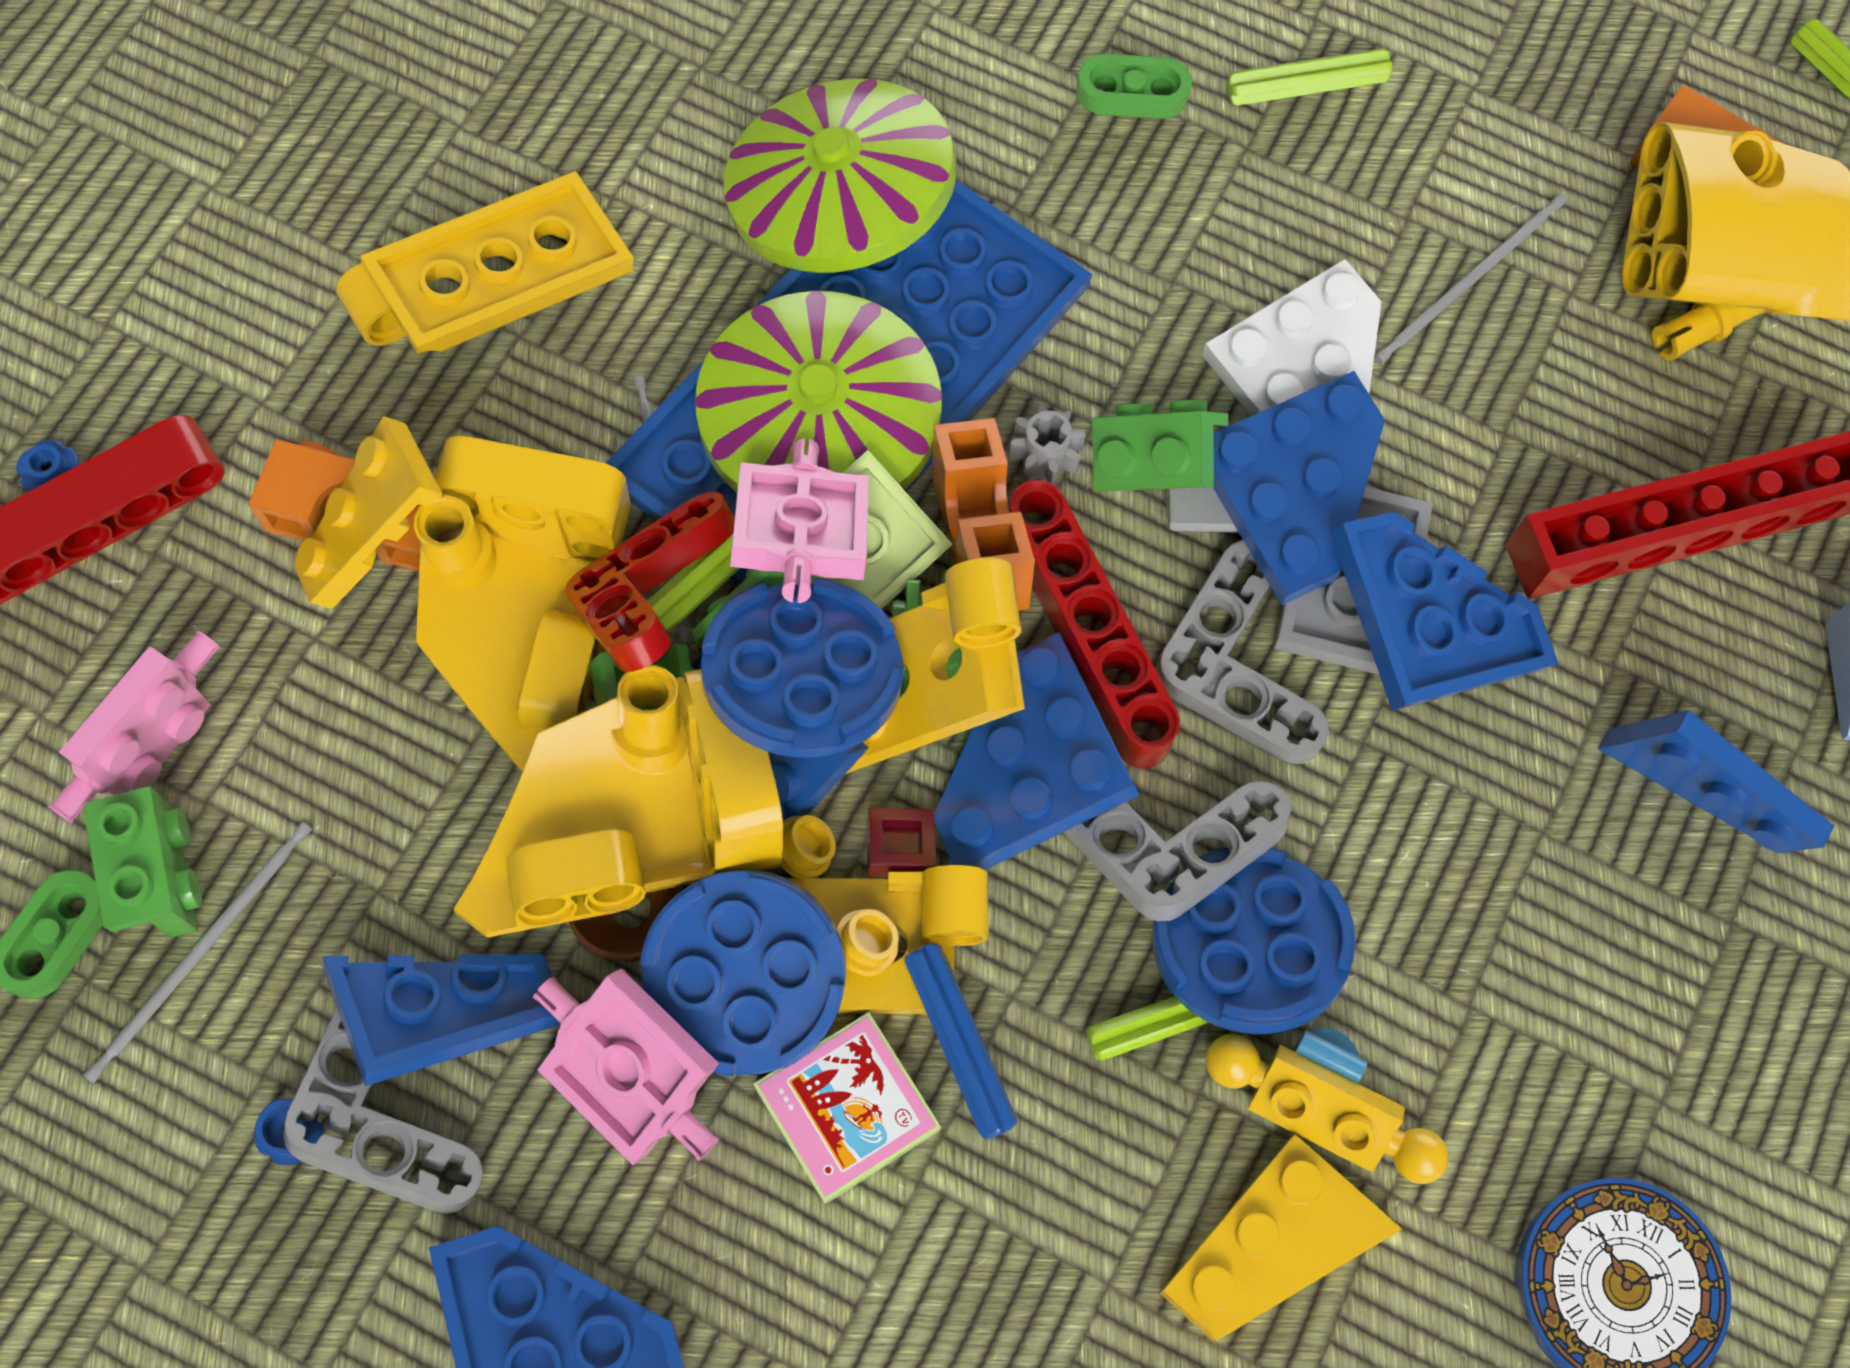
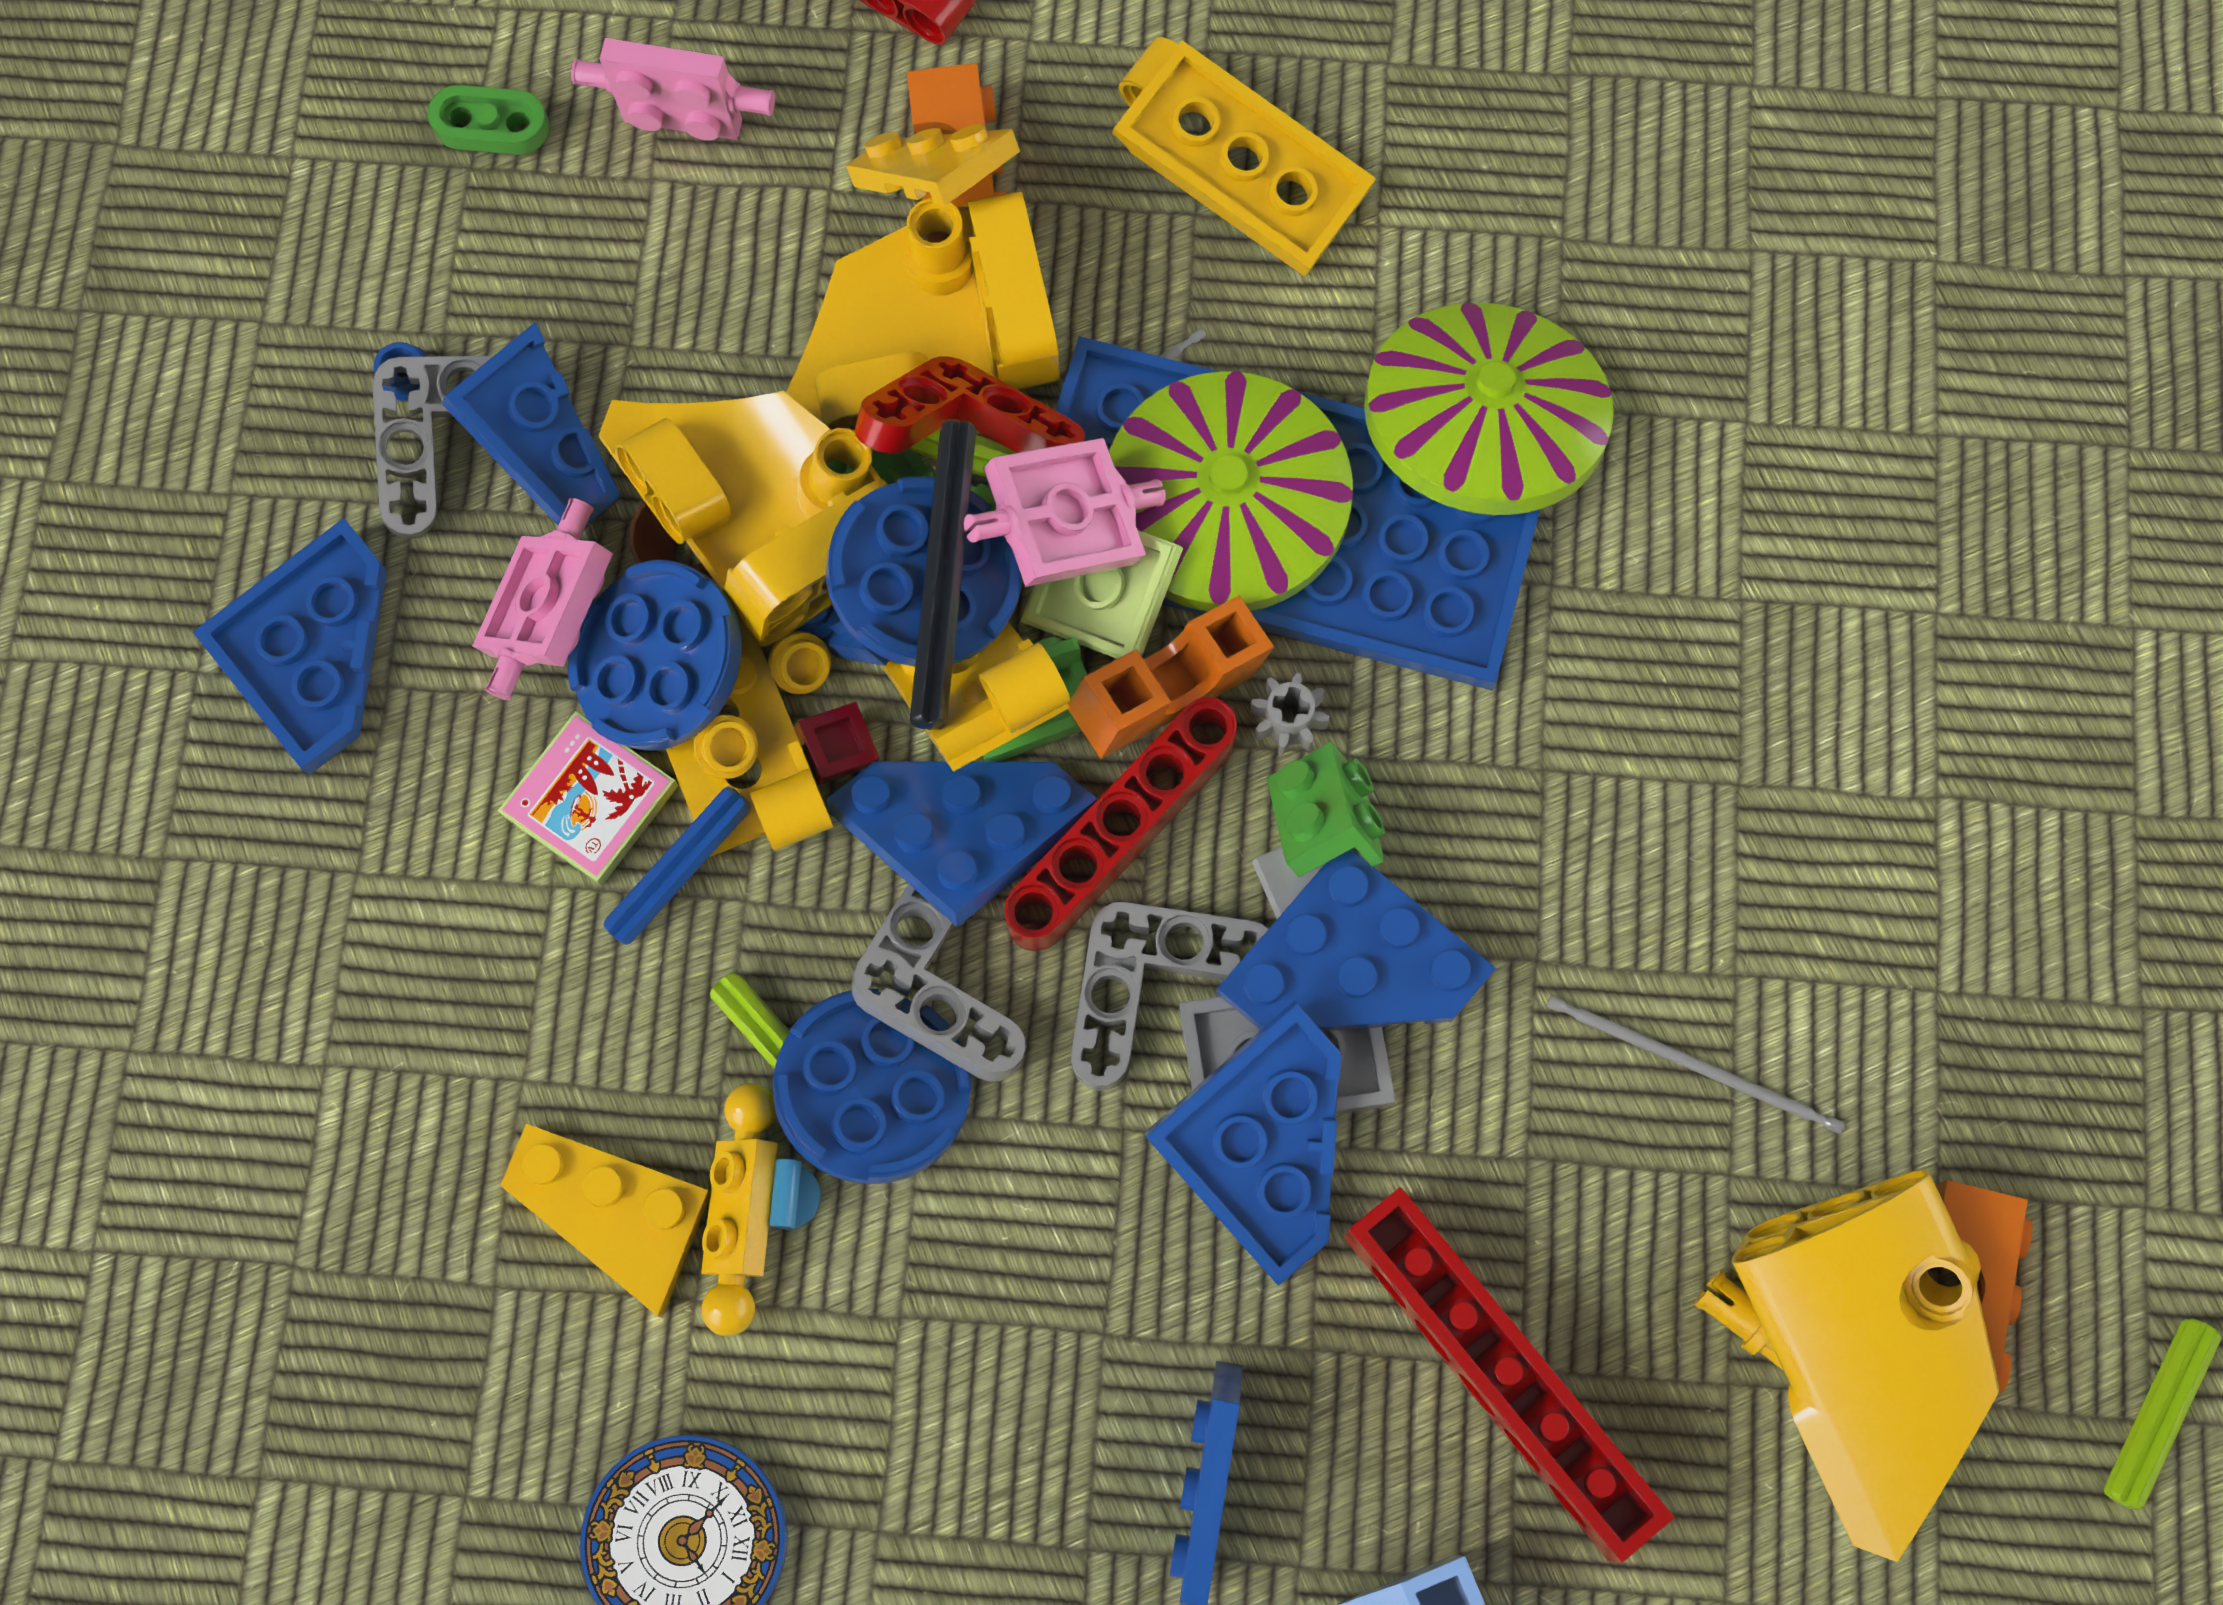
camera: 75 degrees right, 5 degrees up
(141, 862) = (566, 154): bright green bracket -> none
(197, 953) = (526, 236): light grey piece -> none
(824, 640) = (943, 576): none -> black axle
(1132, 86) = (1746, 644): bright green plate -> none
(1300, 341) = (1526, 921): white plate -> none
(1309, 77) = (1852, 813): lime axle -> none

